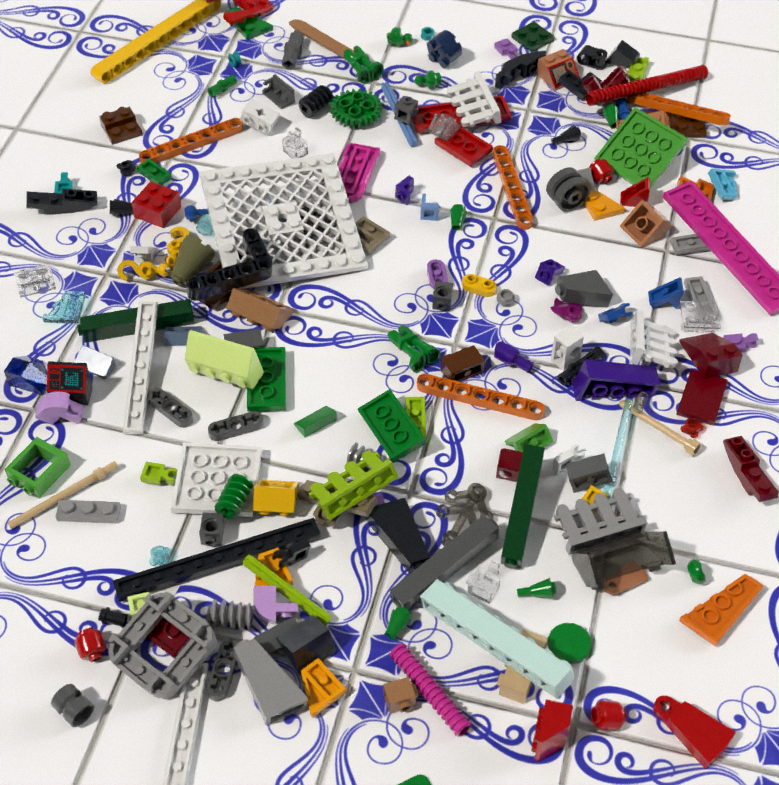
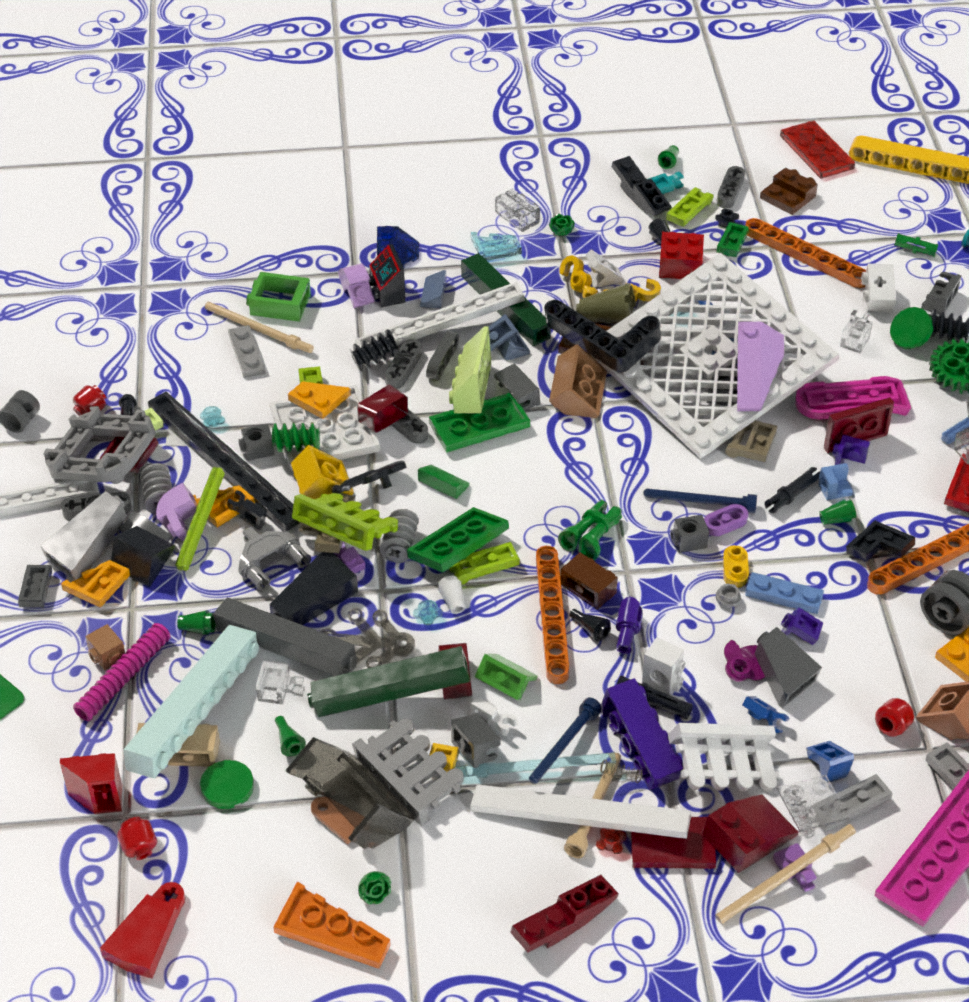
camera: 70 degrees right, 5 degrees down
(35, 174) = (668, 158): none -> green cone
(70, 260) = (561, 225): none -> green plate
(82, 95) = (817, 149): none -> clear red plate
(89, 148) = (733, 193): none -> dark grey beam
(100, 183) = (689, 206): none -> lime plate
(152, 417) = (374, 349): none -> black piece
(177, 338) = (501, 331): none -> sand blue slope
(179, 379) = (442, 355): none -> dark grey beam
(187, 471) = (318, 398): none -> light orange wing
(230, 429) = (379, 410): none -> dark red piece
(296, 458) = (370, 476): none -> black piece
(301, 737) = (35, 586): none -> dark grey plate
(309, 117) = (911, 328): none -> green tile
(318, 197) = (758, 360): none -> lavender wedge
(339, 557) = (266, 550): none -> light grey connector
(391, 174) = (861, 422): none -> dark red tile
(426, 256) = (748, 502): none -> dark blue piece
(428, 235) = (786, 494): none -> black pin
(438, 447) = (451, 591): none -> white cone
(449, 464) = (427, 612): none -> clear light blue plate
(490, 206) = (878, 537): none -> black plate
(505, 375) = (596, 626): none -> black cone
(514, 269) = (784, 592): none -> medium blue plate
(580, 403) = (588, 711): none -> dark blue piece
(642, 253) = (894, 717): none -> red head
(668, 435) = (581, 811): none -> white tile
(737, 318) = (828, 844): none -> tan bar

